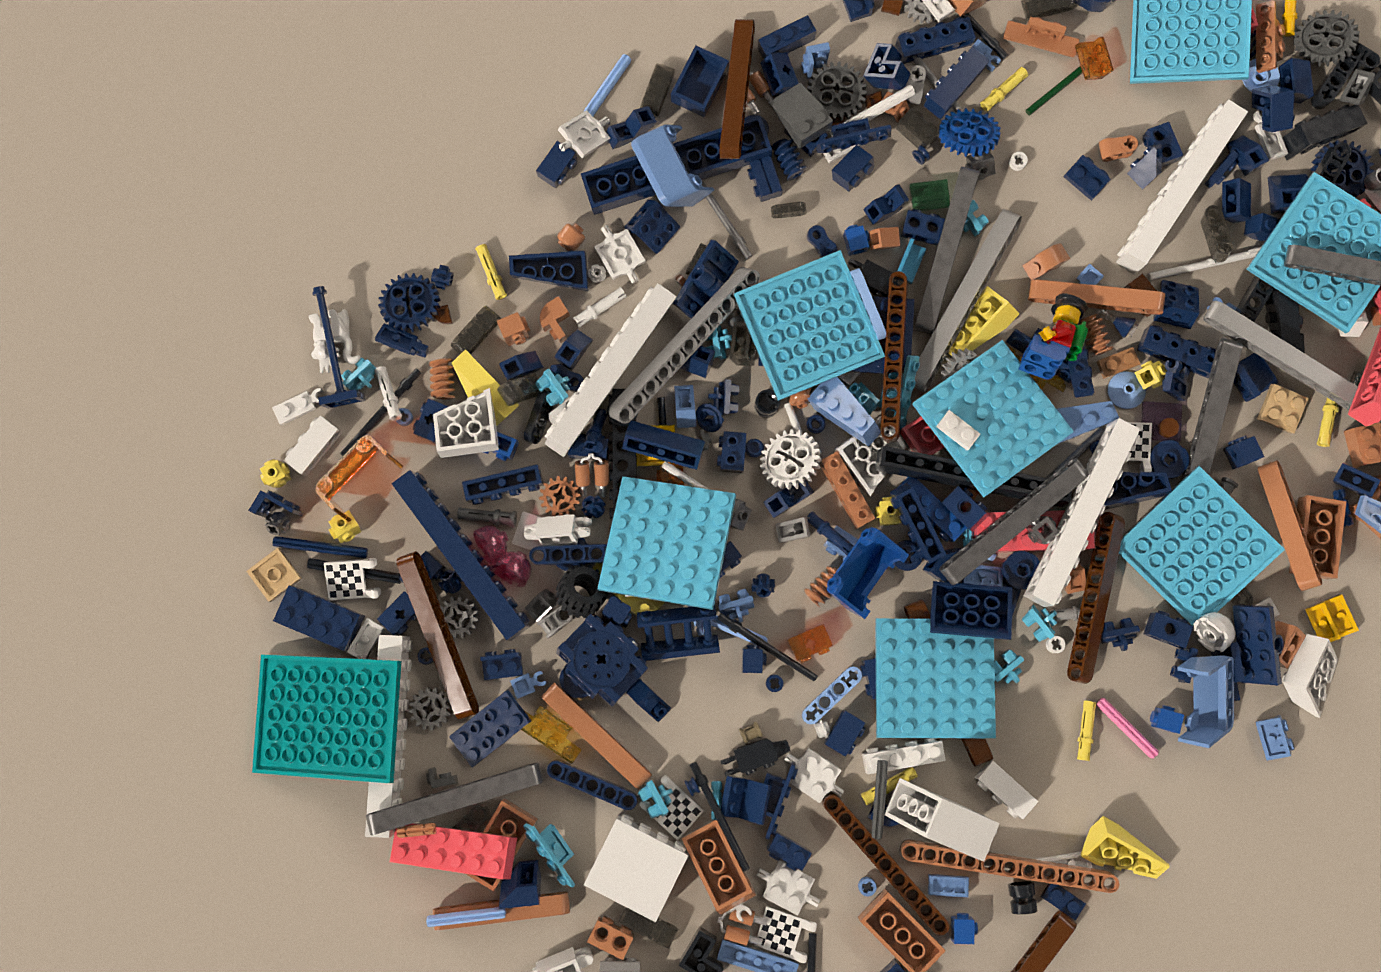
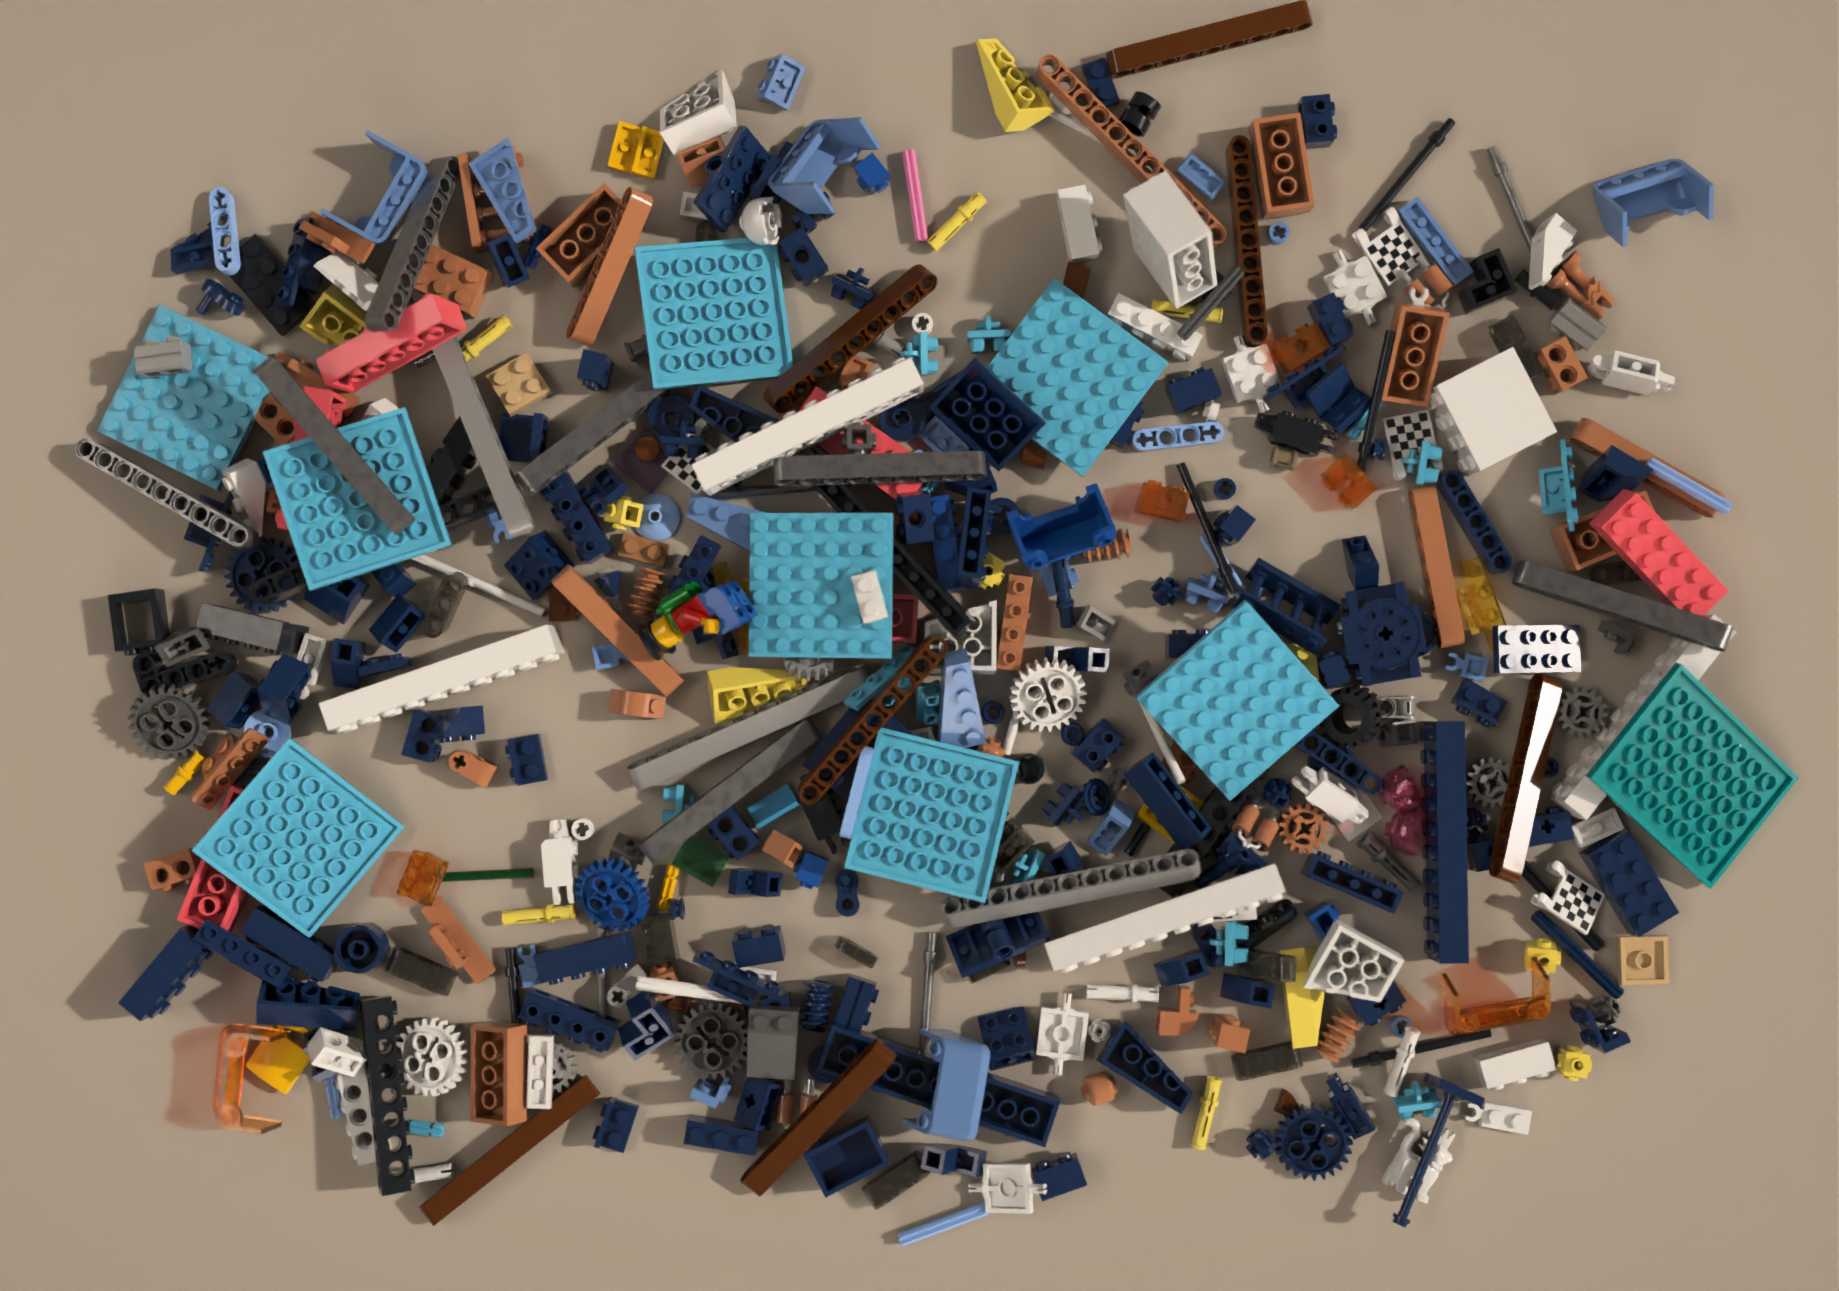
camera: 145 degrees left, 5 degrees up
(416, 830) = (1683, 600): nougat axle -> none
(704, 756) = (1358, 488): none -> clear orange brick
(786, 823) = (1309, 337): none -> clear orange brick
(937, 164) = (668, 887): none -> yellow axle
(963, 929) = (1217, 127): blue brick -> none
(1017, 130) = (559, 861): none -> white hinge
(1157, 442) = (671, 443): none -> dark blue hips

